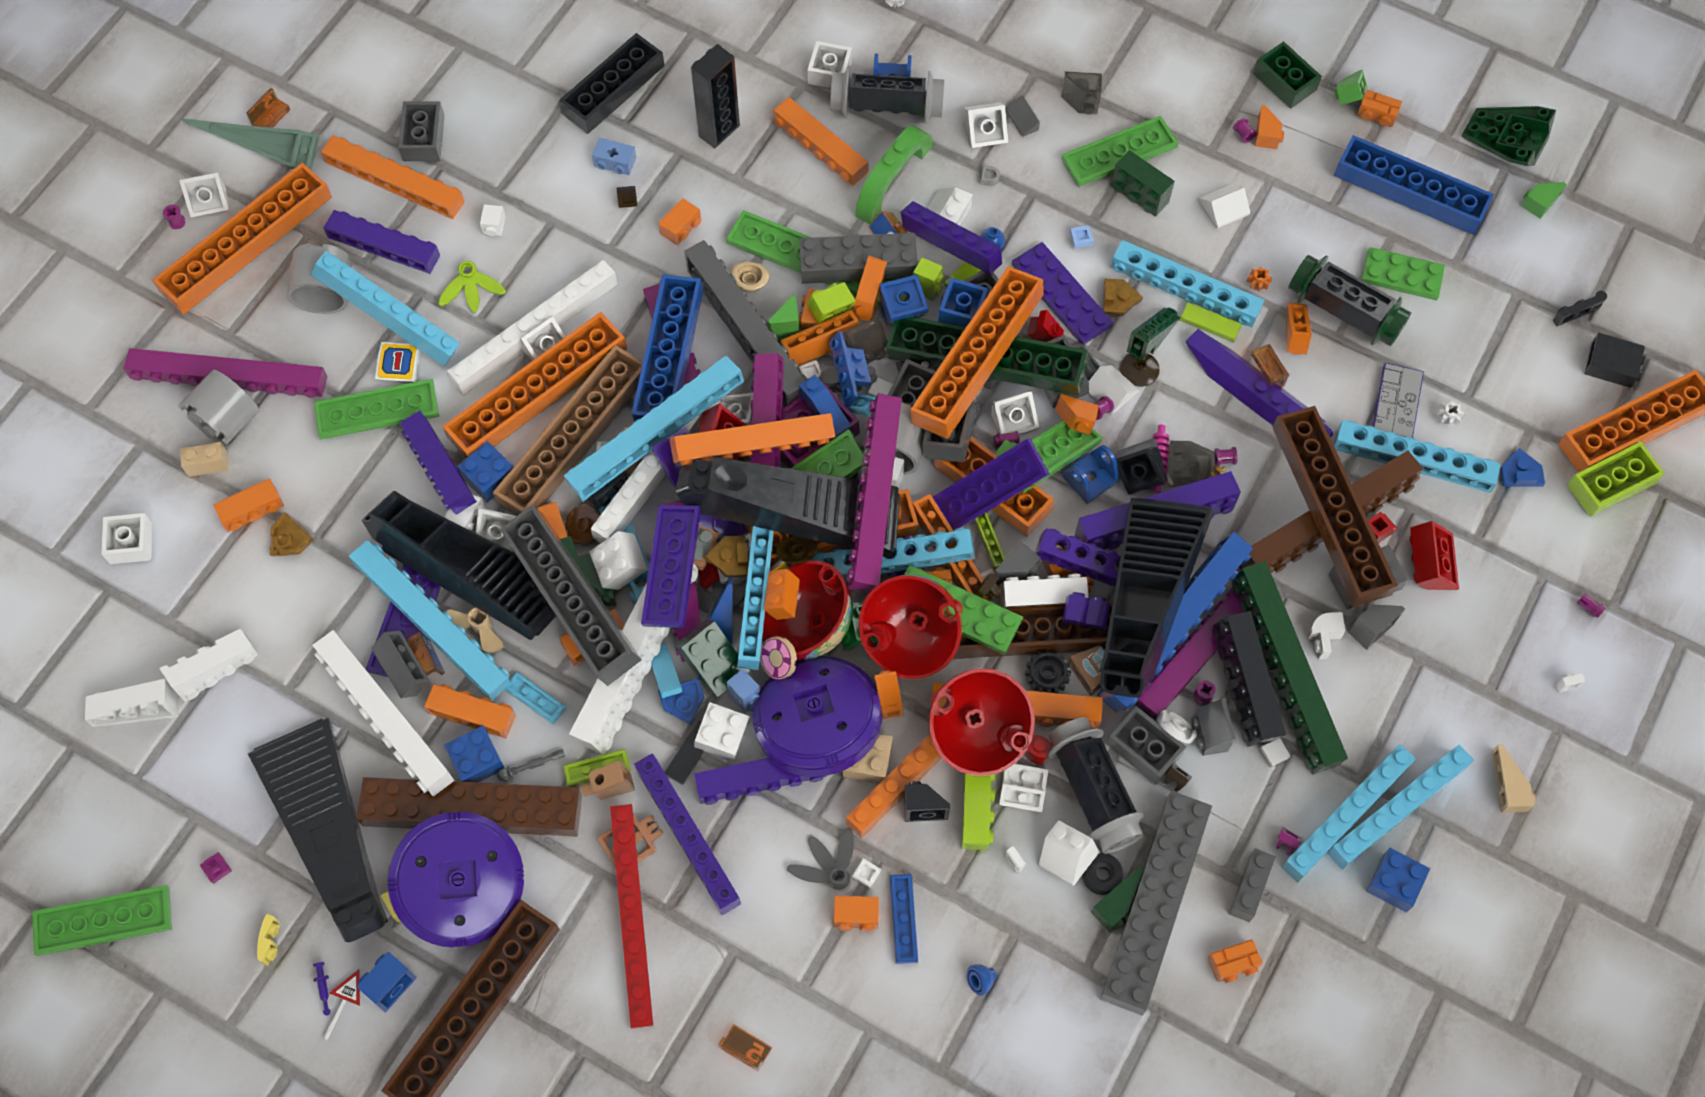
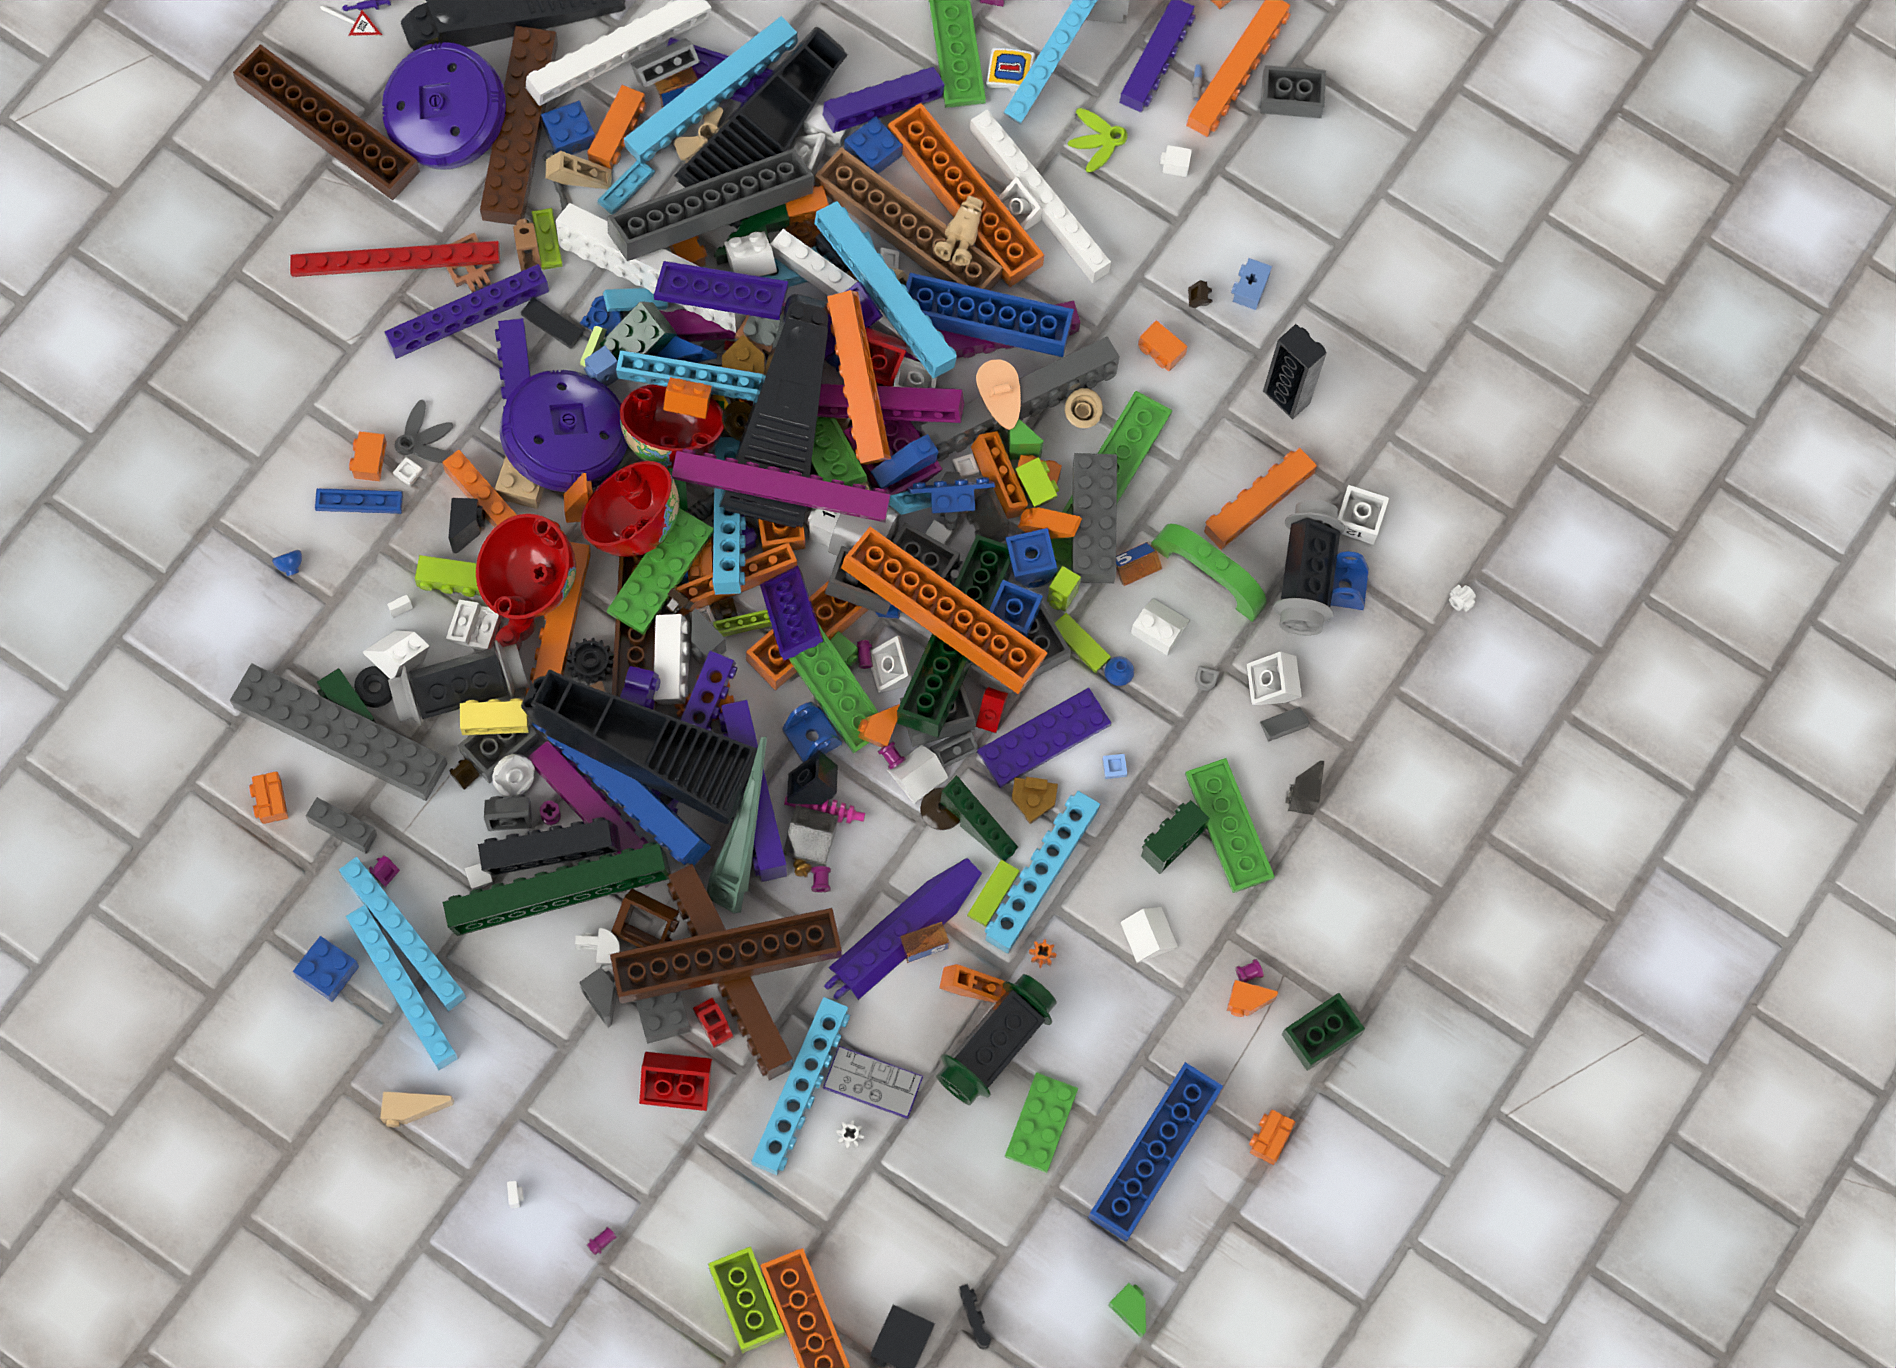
camera: 90 degrees right, 5 degrees up
(386, 981) = (359, 51): blue brick -> none
(409, 210) = (1197, 83): none -> light grey piece
(524, 742) = (577, 172): none -> tan slope
(581, 376) = (962, 229): none -> tan piece
(612, 83) = (1348, 284): black brick -> none
(707, 696) = (593, 344): none -> yellowish green tile
(721, 732) = (563, 346): white brick -> none
(745, 1047) = (256, 350): clear orange panel -> none
(747, 331) = (1000, 391): none -> light nougat shield
(778, 657) = (622, 392): tile -> none
(951, 237) = (1111, 616): dark purple brick -> none
(982, 561) = (724, 609): none -> dark brown tile
(1130, 742) = (493, 717): none -> light yellow brick
(1229, 514) = (732, 870): none -> sand green plate
(1305, 611) = (636, 936): none -> reddish brown window
(1351, 88) = (1301, 1107): bright green slope -> none
(1511, 132) = (1224, 1289): dark green wedge -> none
(1522, 471) = (773, 1203): blue plate -> none

